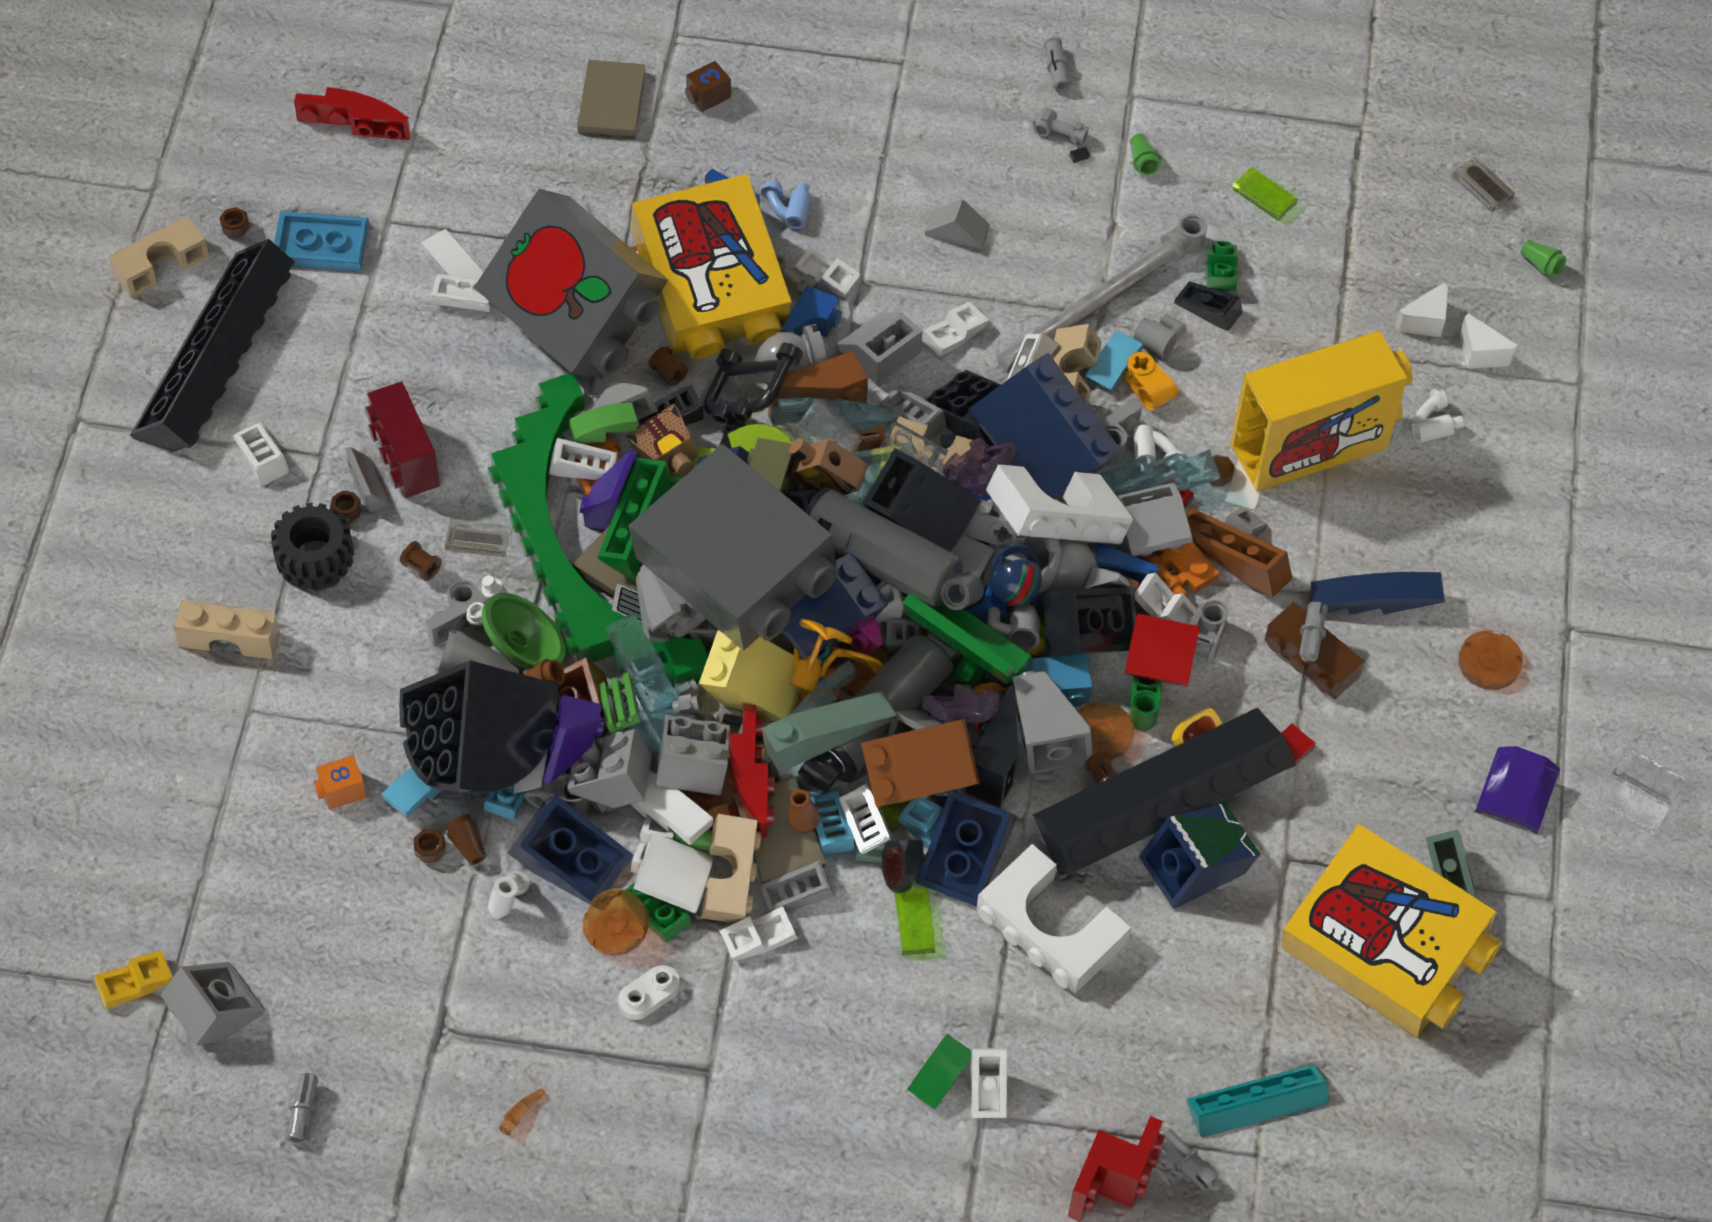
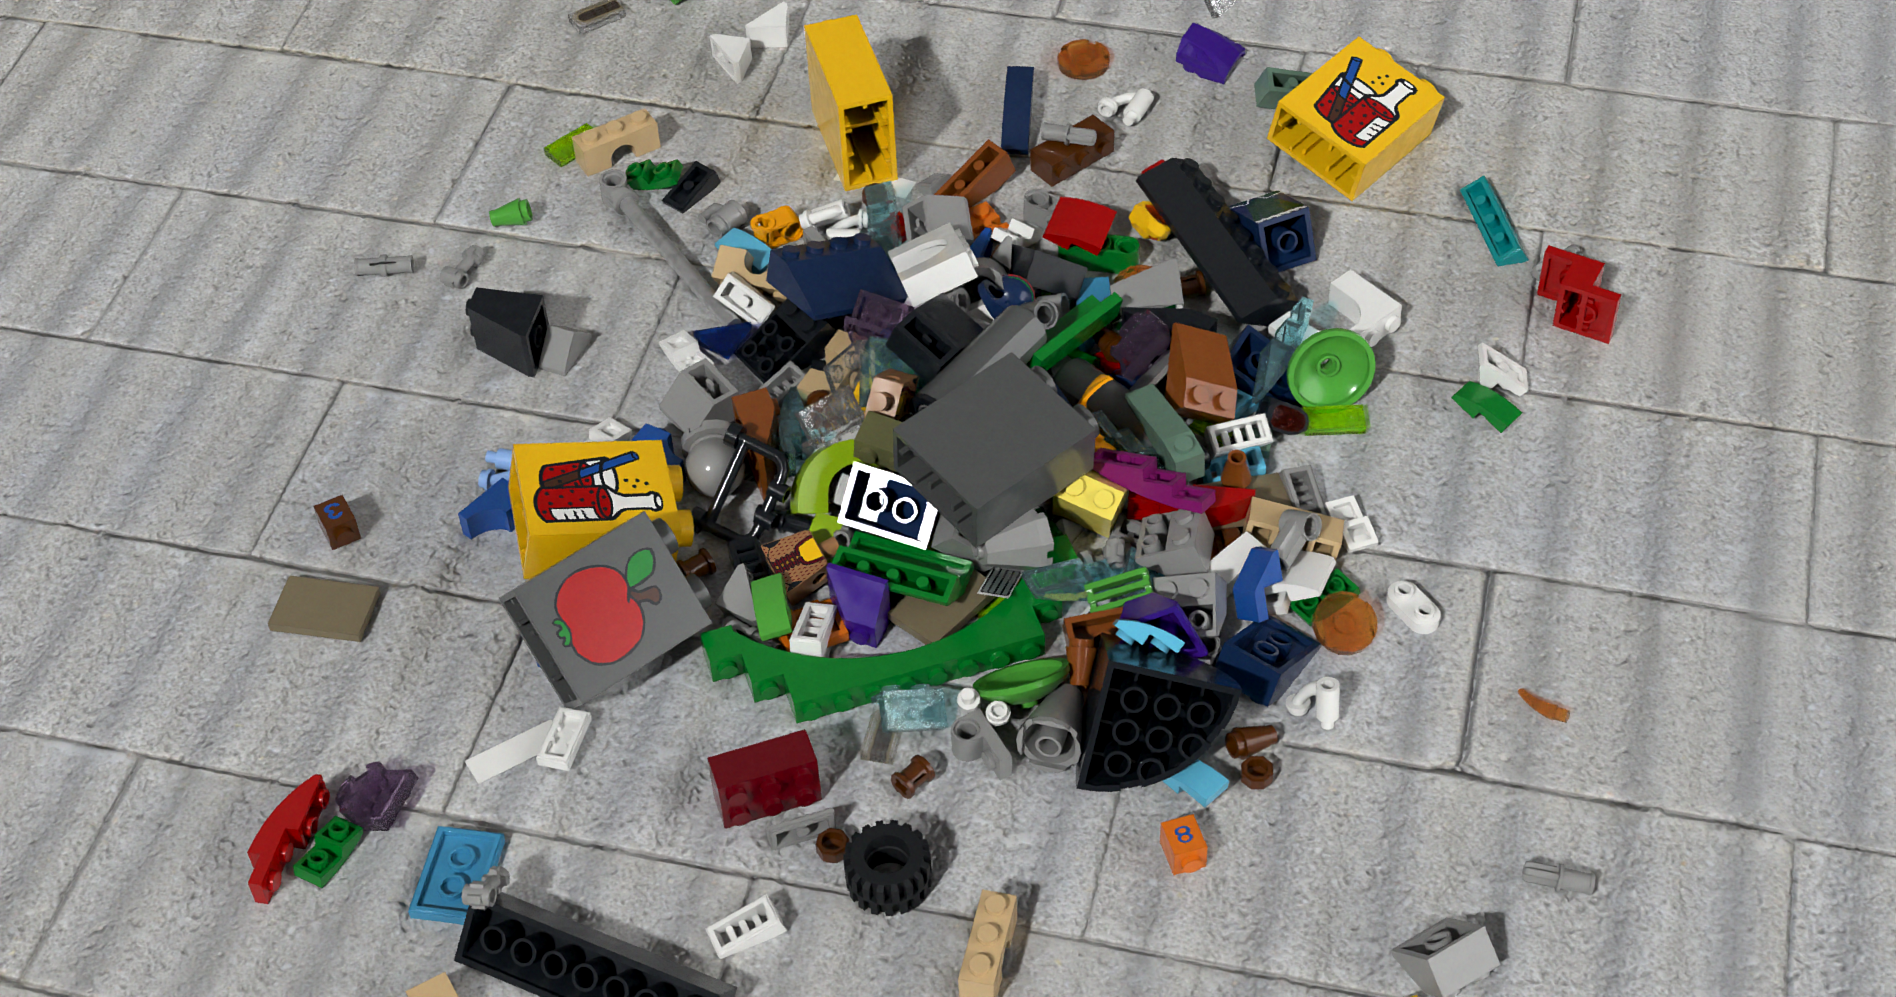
camera: 80 degrees left, 10 degrees down
(234, 222) = (413, 957): reddish brown tile -> none
(261, 243) = (484, 893): none -> light grey bar
(348, 151) = (331, 850): none -> green slope
(396, 168) = (375, 796): none -> clear purple slope
(493, 547) = (911, 709): none -> clear light blue bracket
(544, 704) = (1135, 630): none -> medium azure slope
(648, 827) = (1259, 571): none -> blue slope
(706, 859) = (1295, 529): none -> light grey piece
(753, 714) = (1142, 477): none -> magenta slope
(955, 898) = (1341, 378): none -> bright green dish
(956, 169) = (509, 327): none -> black slope
(967, 844) = (1277, 353): none -> clear light blue slope
(977, 354) = (724, 339): none -> clear blue slope
(1079, 154) = (496, 261): black piece -> none
(1171, 420) = (825, 214): none -> white plant
(1278, 237) = (595, 146): none -> tan arch
(1404, 715) = (1137, 102): none -> white plant

